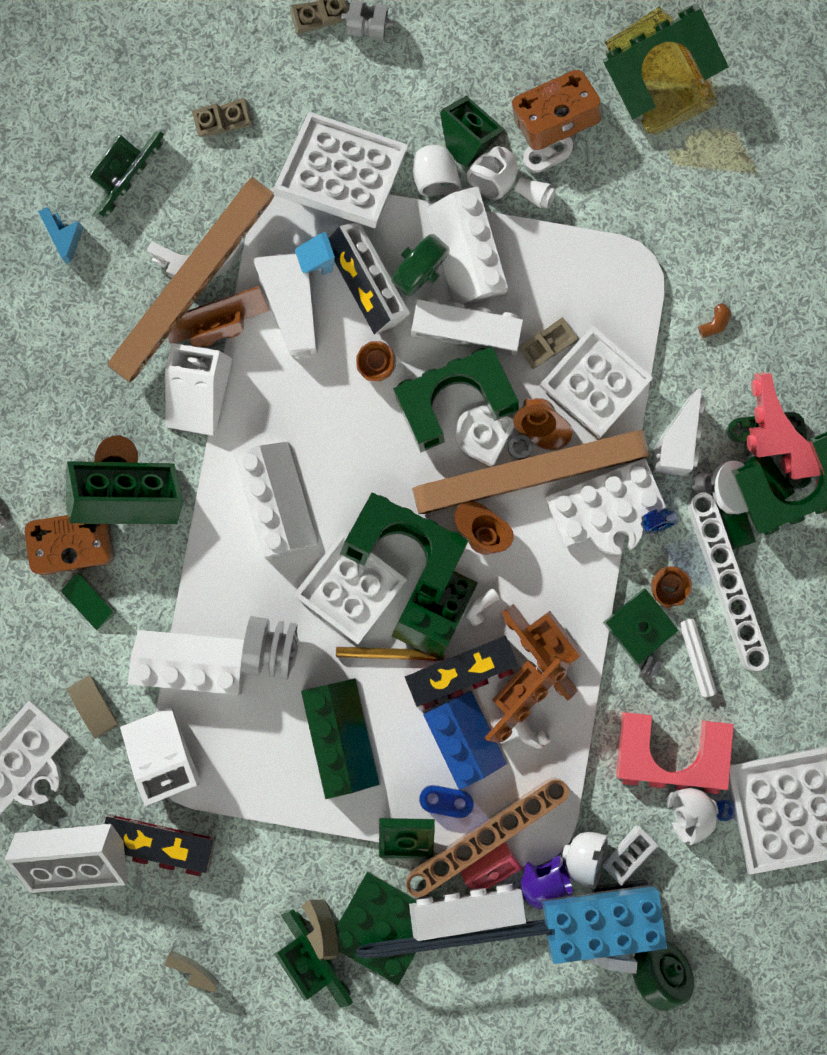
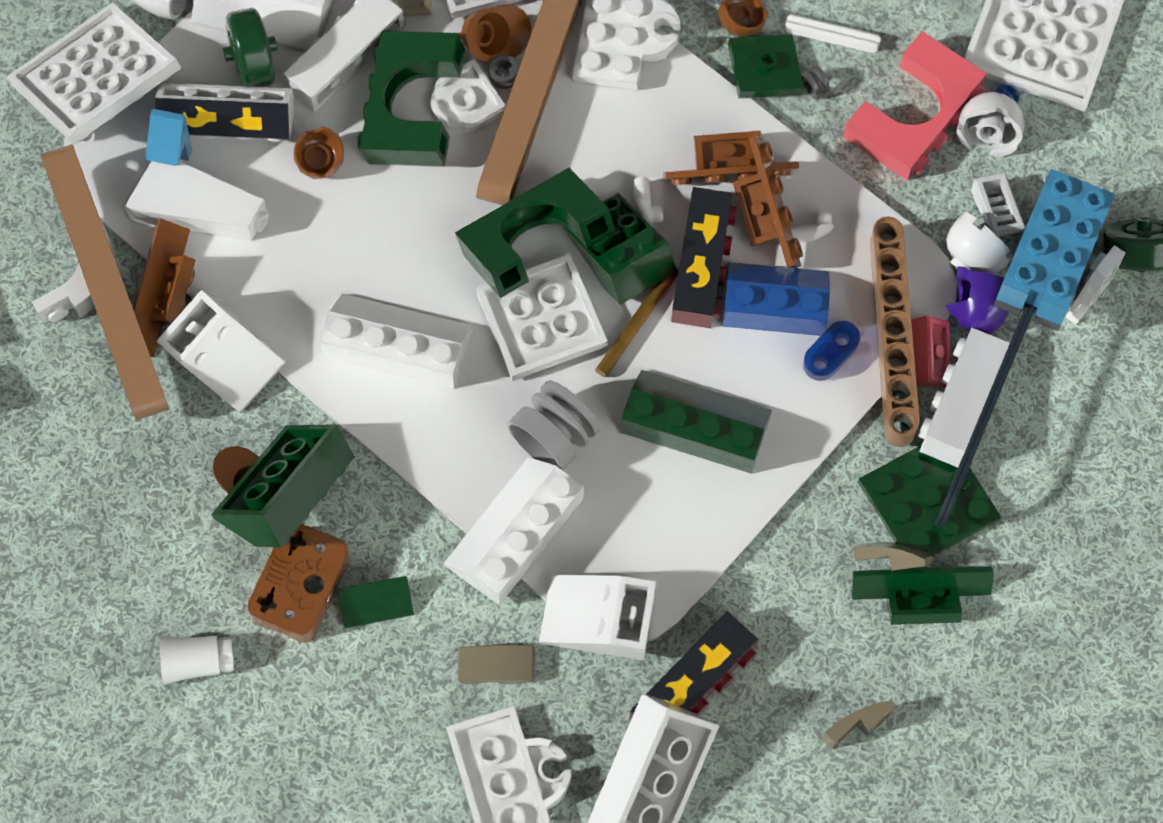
camera: 55 degrees left, 15 degrees down
(405, 836) = (842, 411): dark green plate -> none
(483, 528) = (569, 148): dark orange piece -> none

